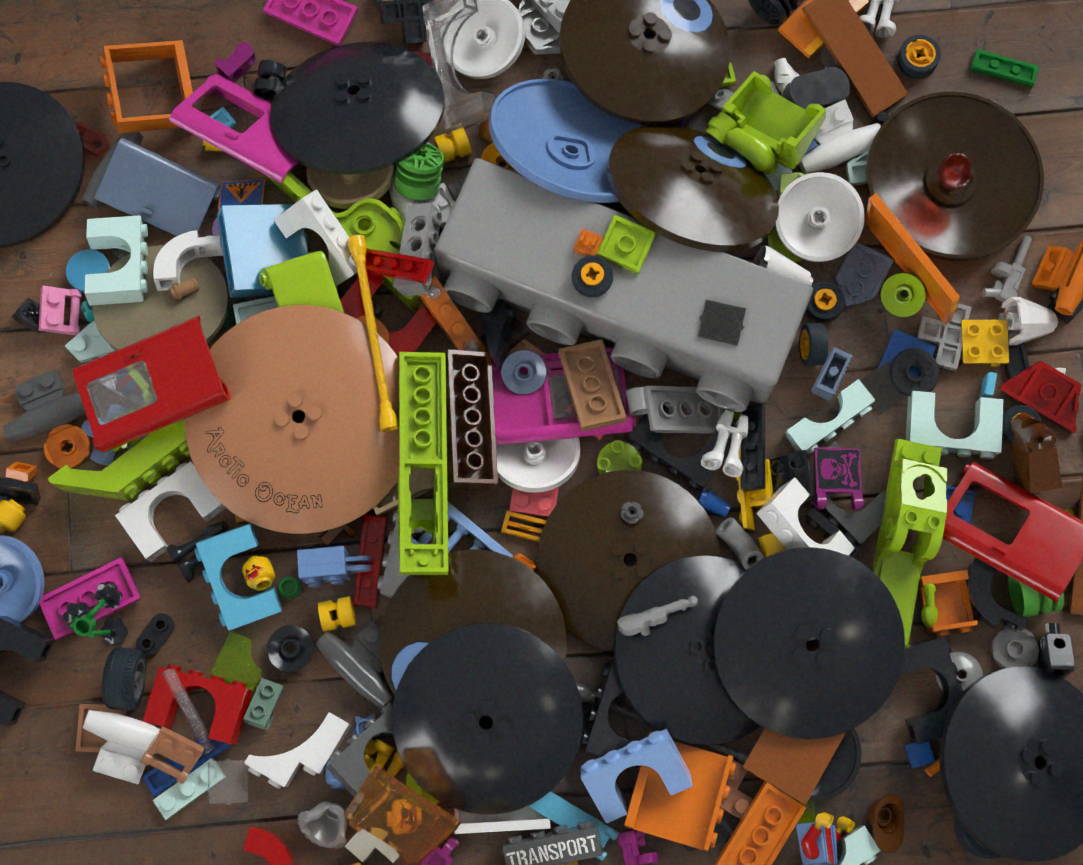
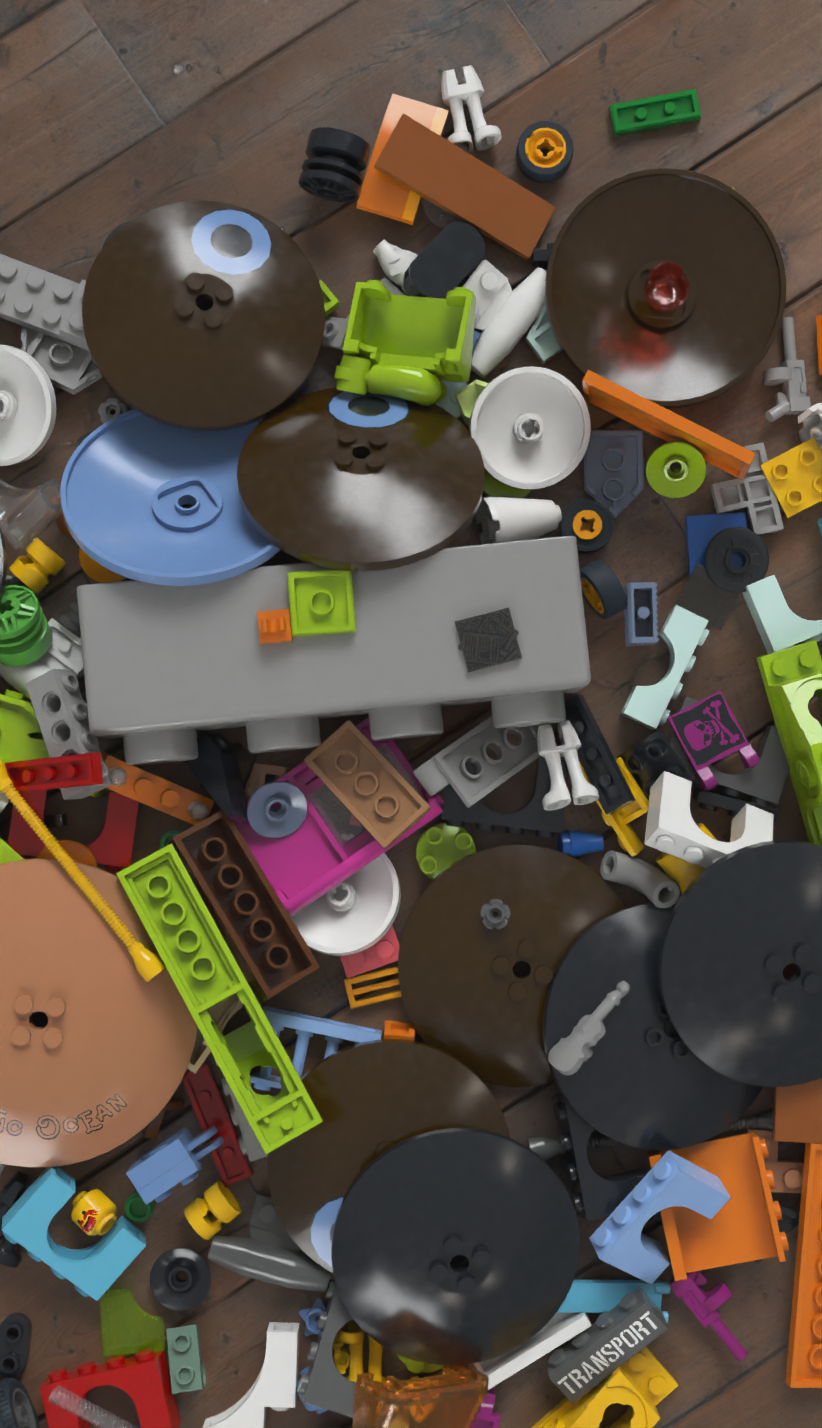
camera: 30 degrees left, 10 degrees up
(593, 284) = (310, 674): black wheel -> none

